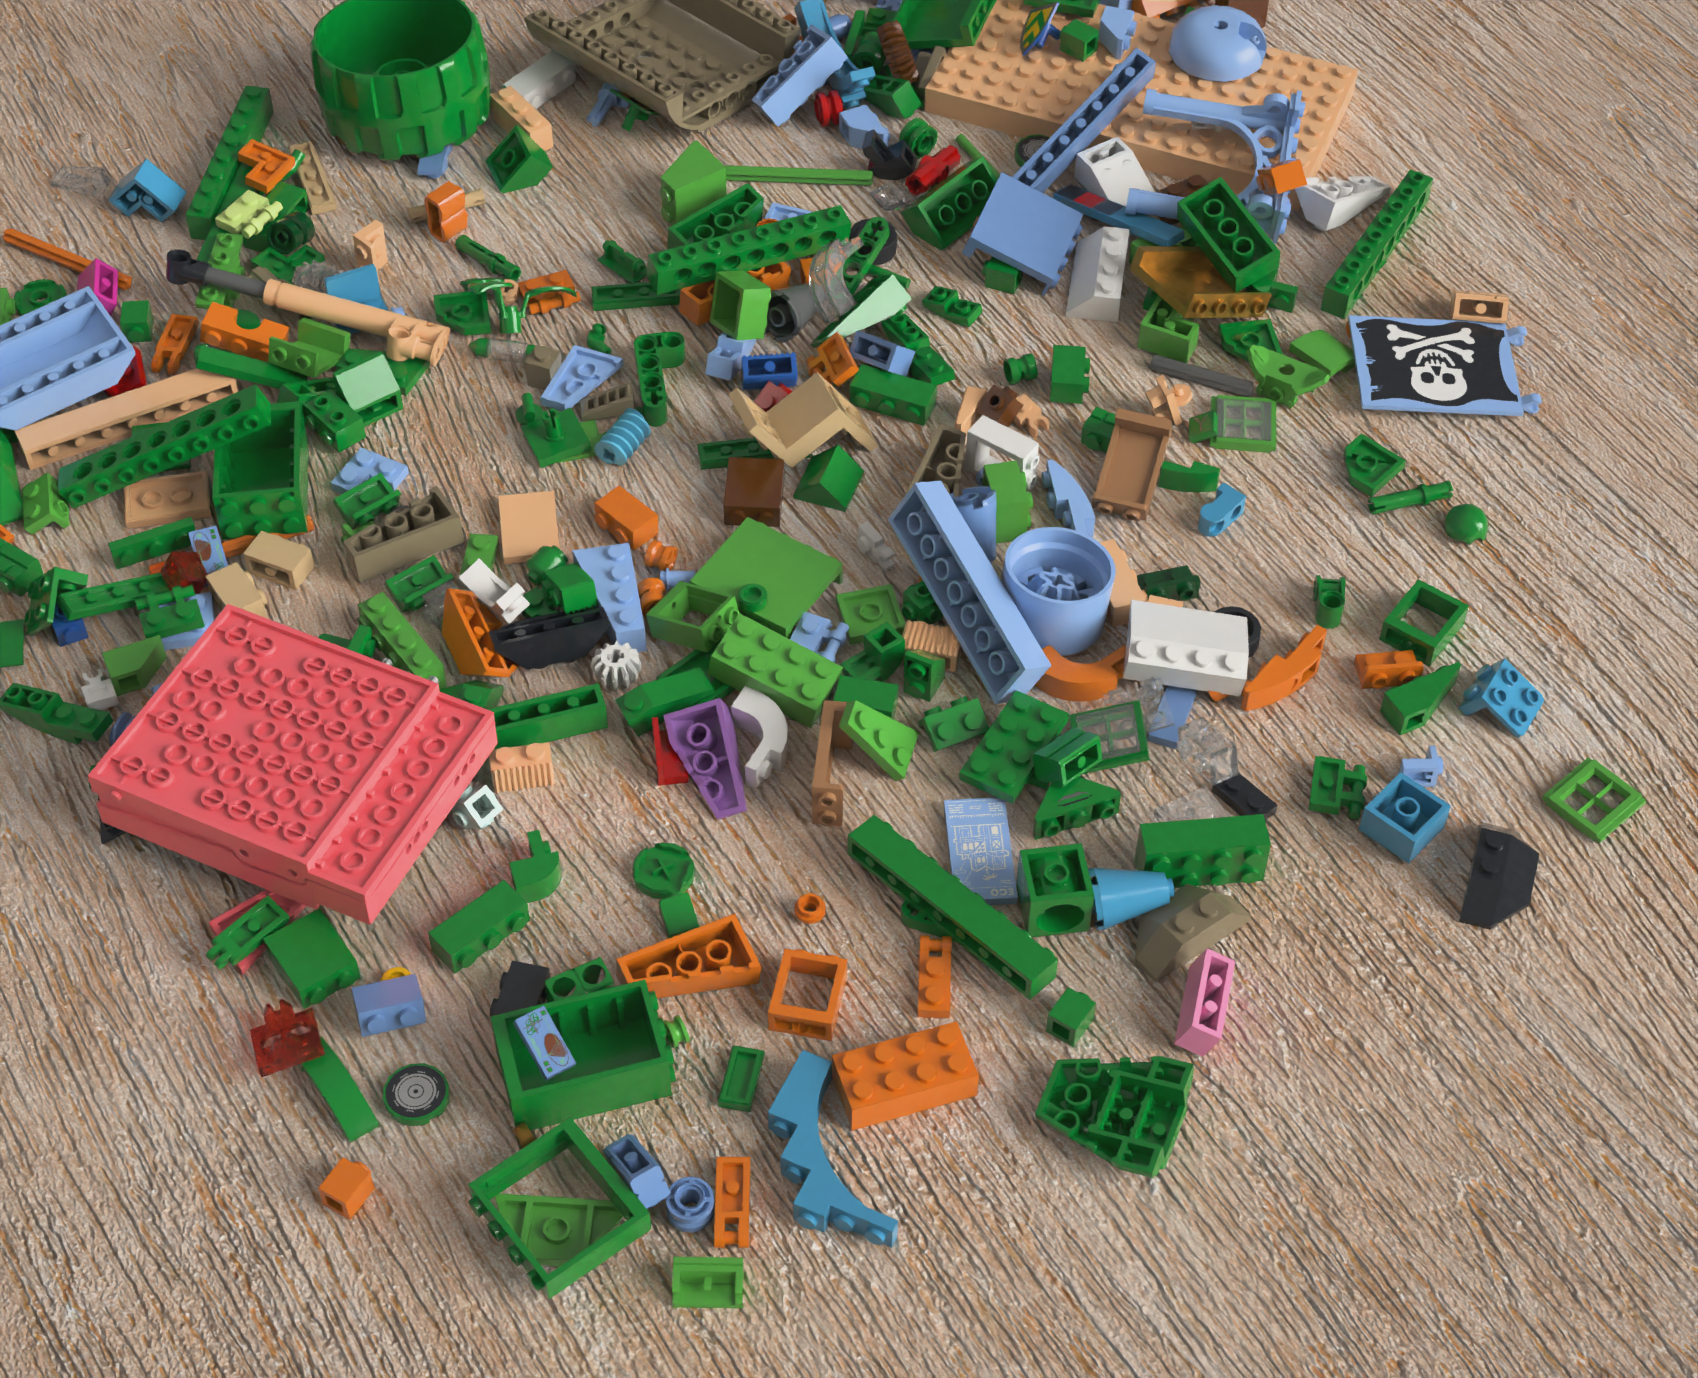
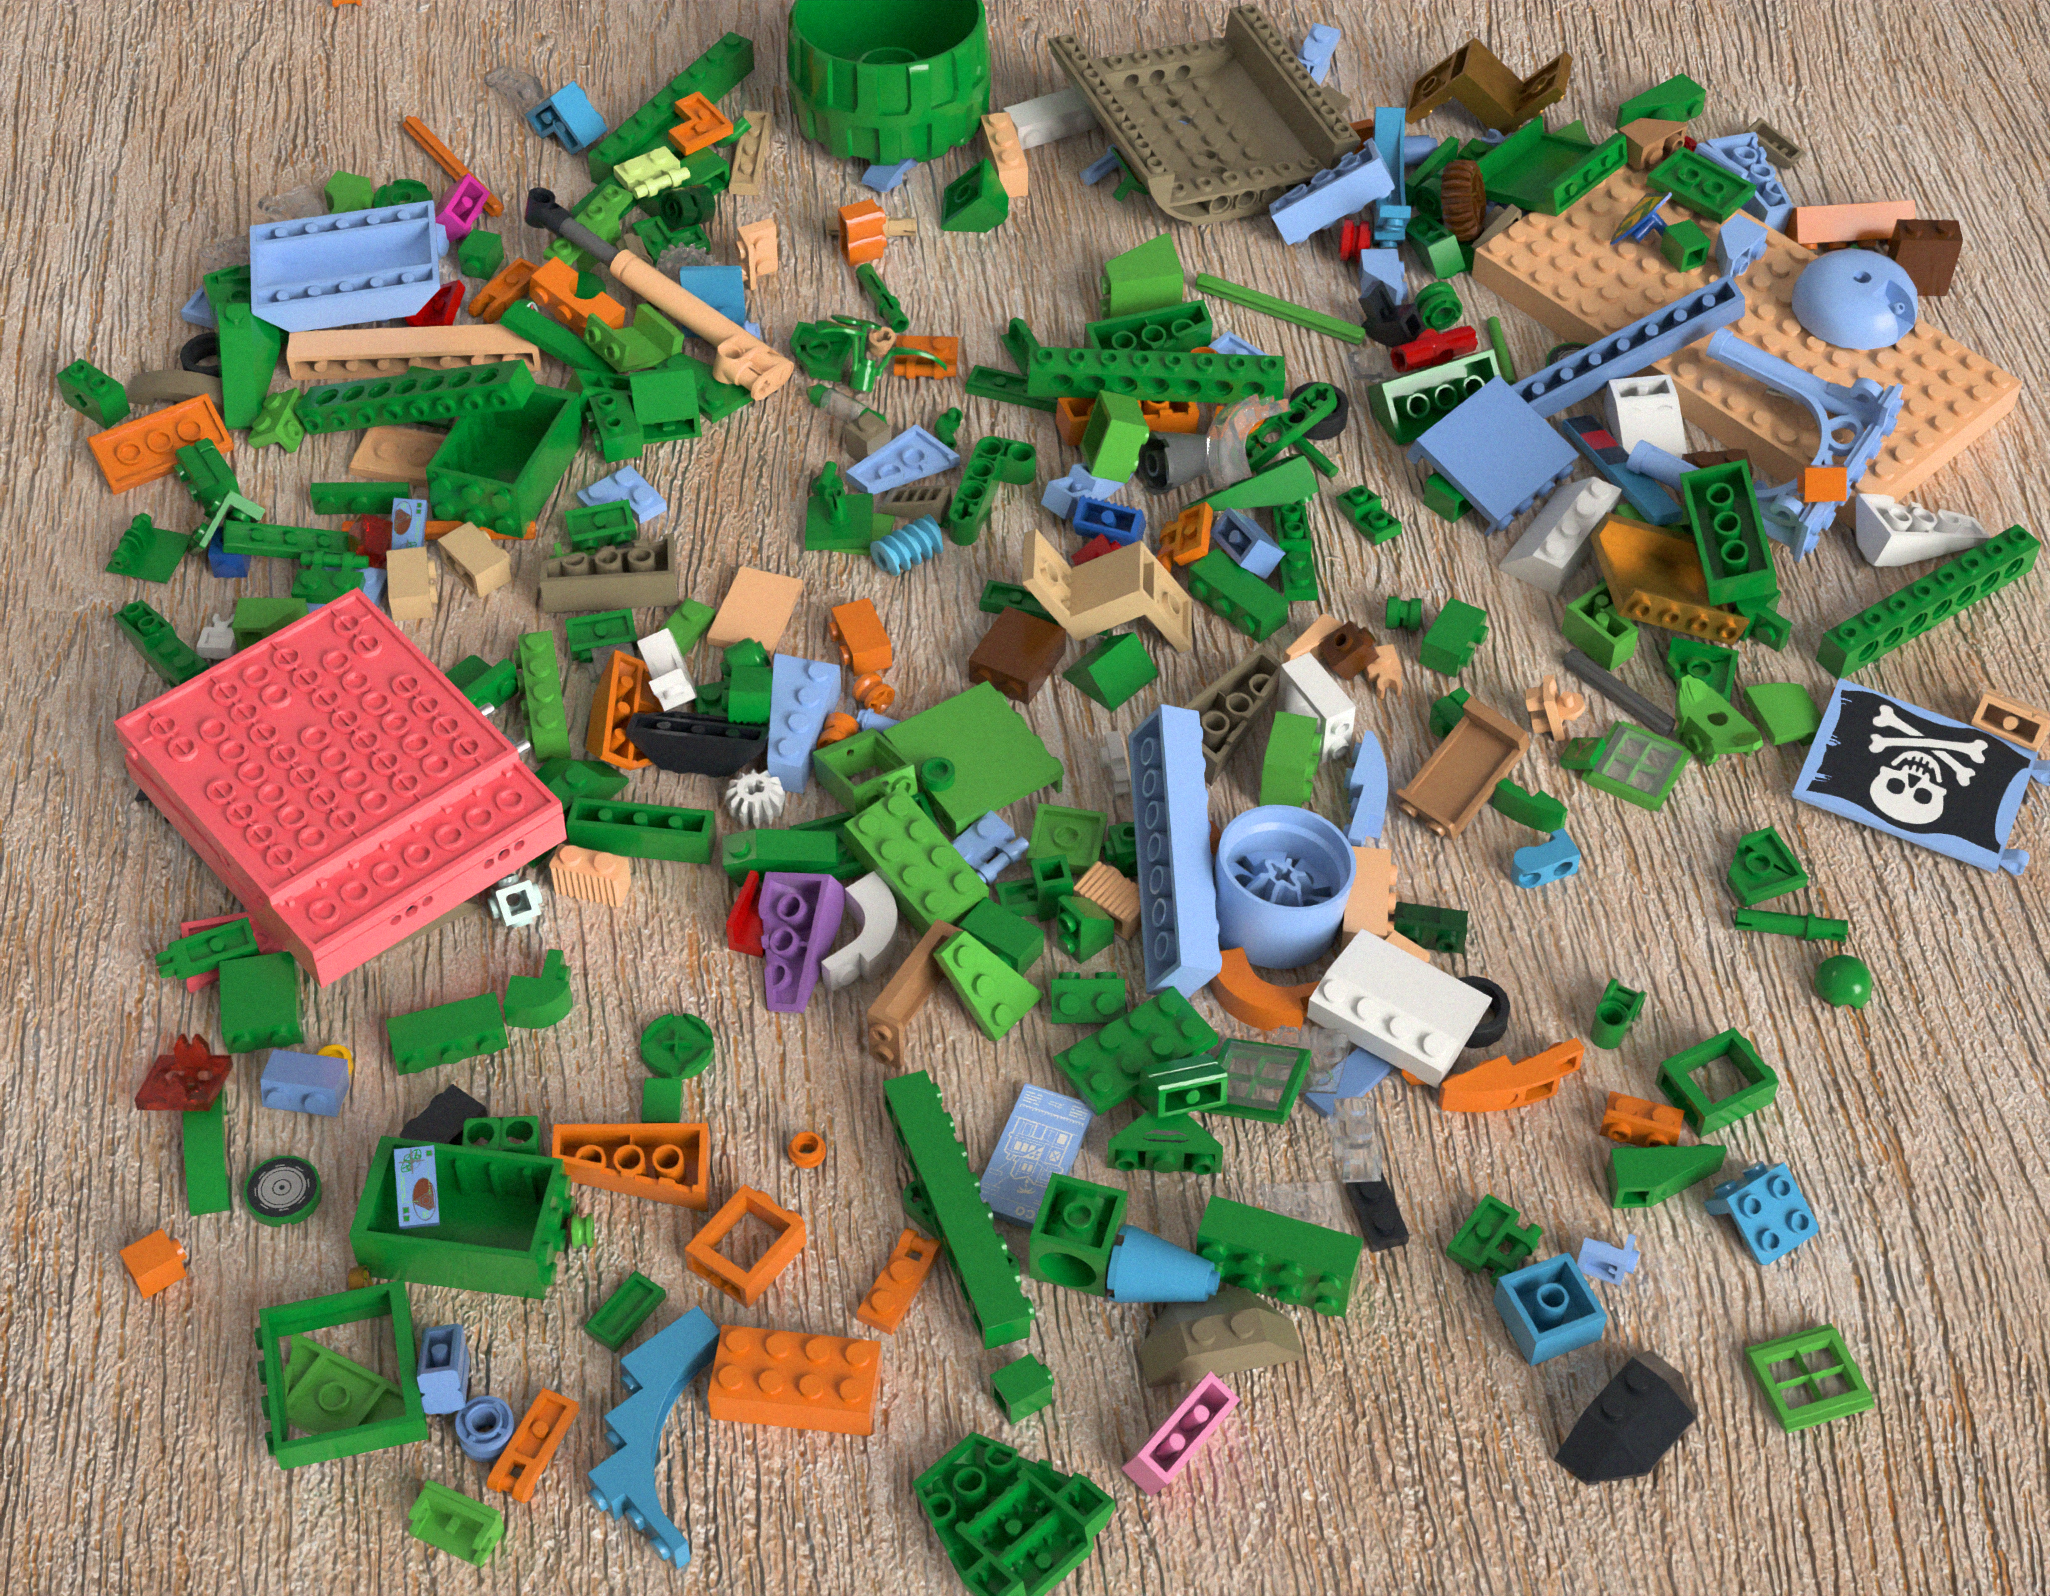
camera: 25 degrees right, 0 degrees up
(979, 509) = (1232, 772): medium blue cone -> none

